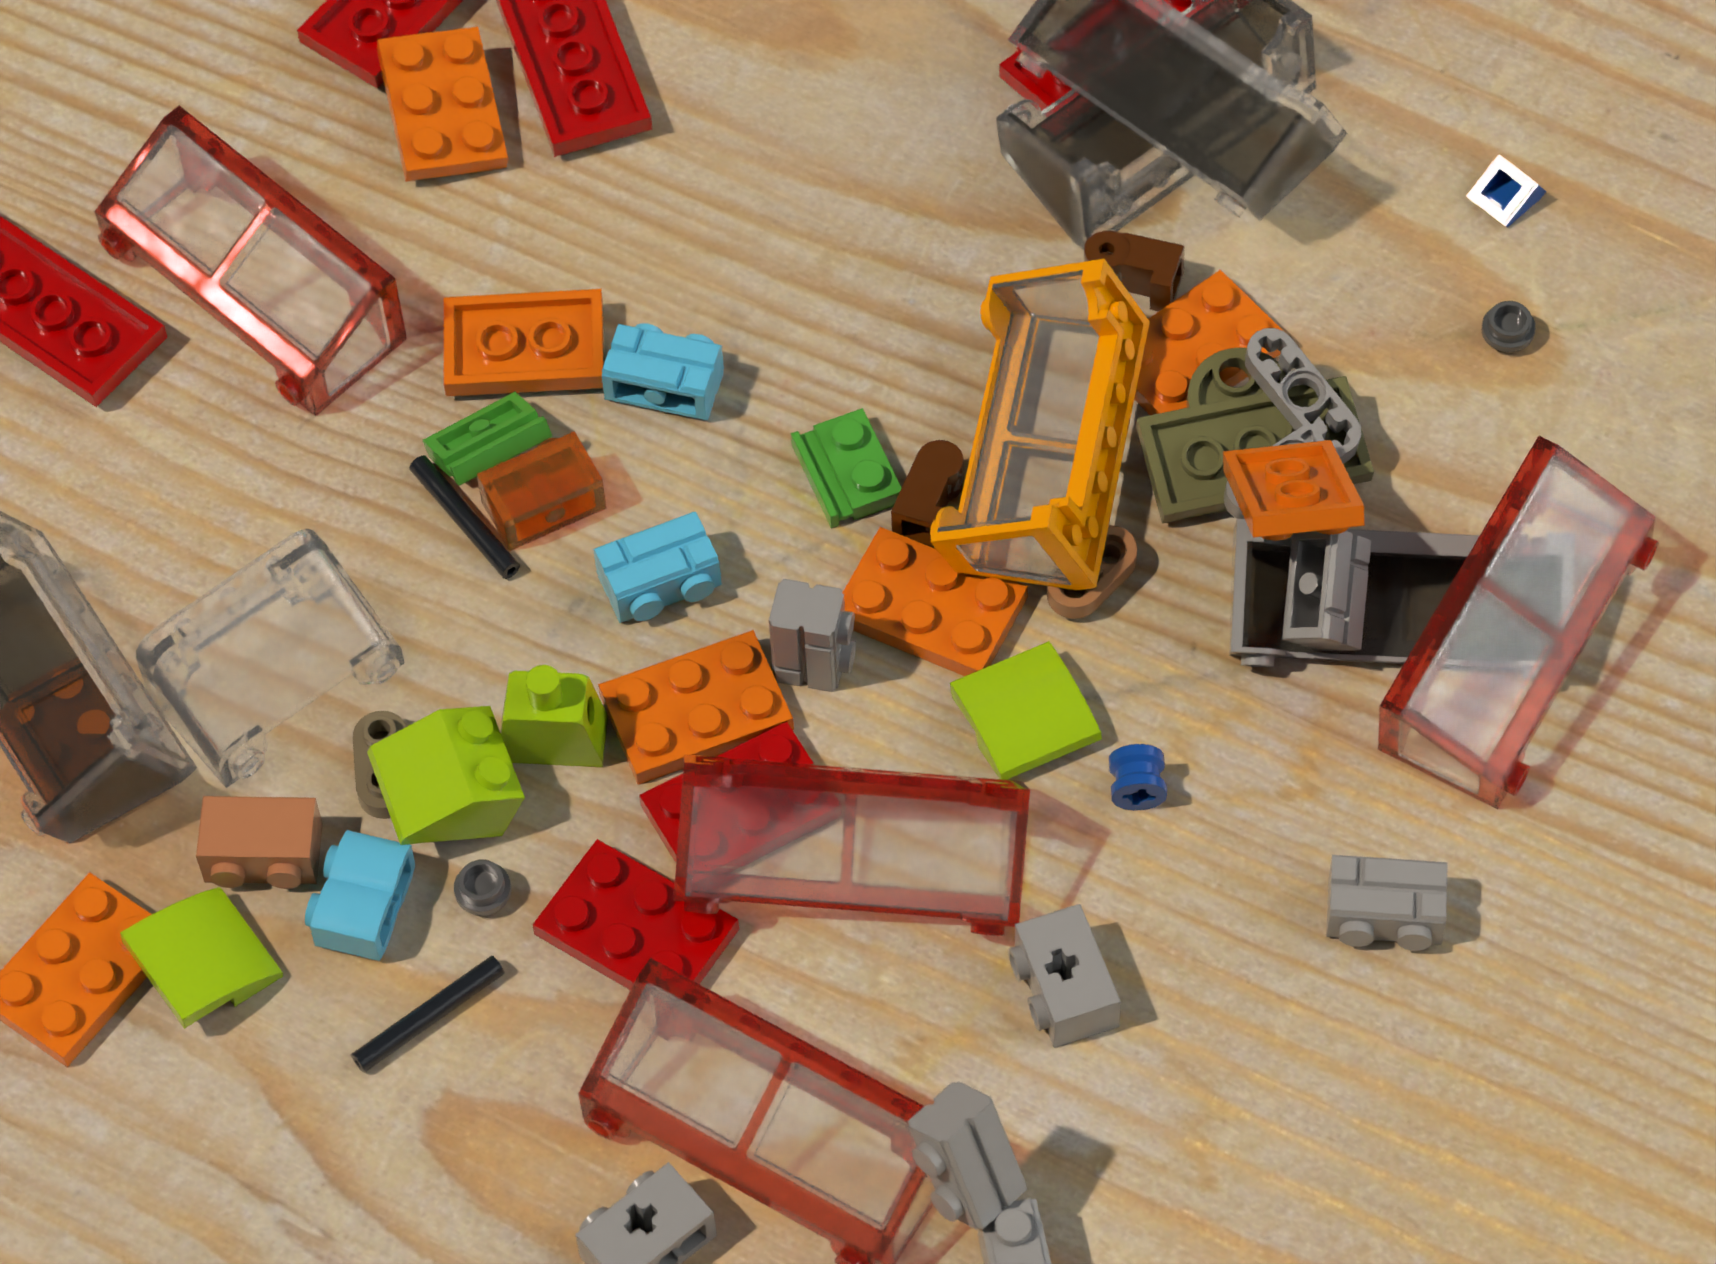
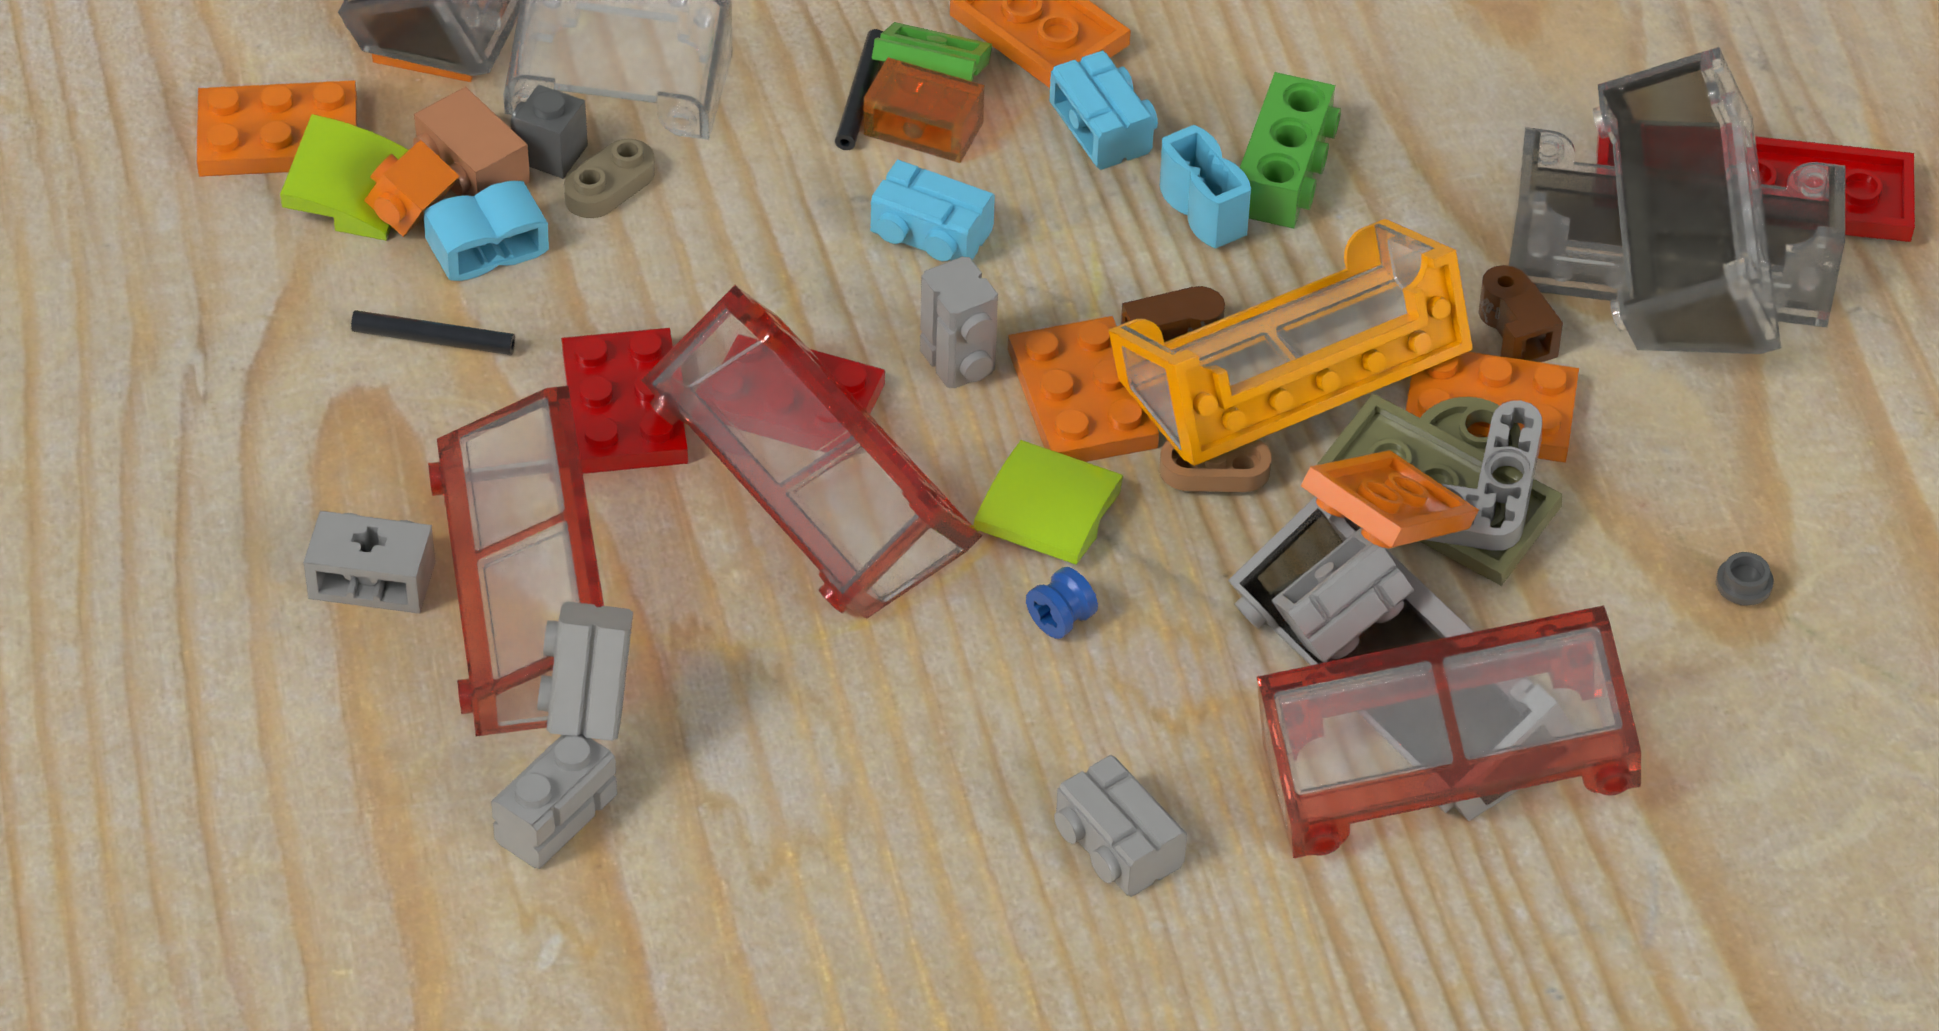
camera: 45 degrees right, 10 degrees down
(268, 917) = (409, 186): none -> orange brick
(300, 766) = (552, 128): none -> dark grey brick
(447, 777) = (621, 205): lime slope -> none
(482, 887) = (564, 292): flat silver plate -> none
(553, 719) = (734, 231): lime torso -> none
(694, 705) = (847, 311): orange plate -> none
(822, 305) = (1289, 148): none -> bright green brick
(825, 366) = (1204, 186): none -> medium azure brick
(846, 467) = (1145, 263): bright green plate -> none
(1065, 946) = (840, 668): light grey brick -> none
(1505, 192) = (1876, 501): slope -> none

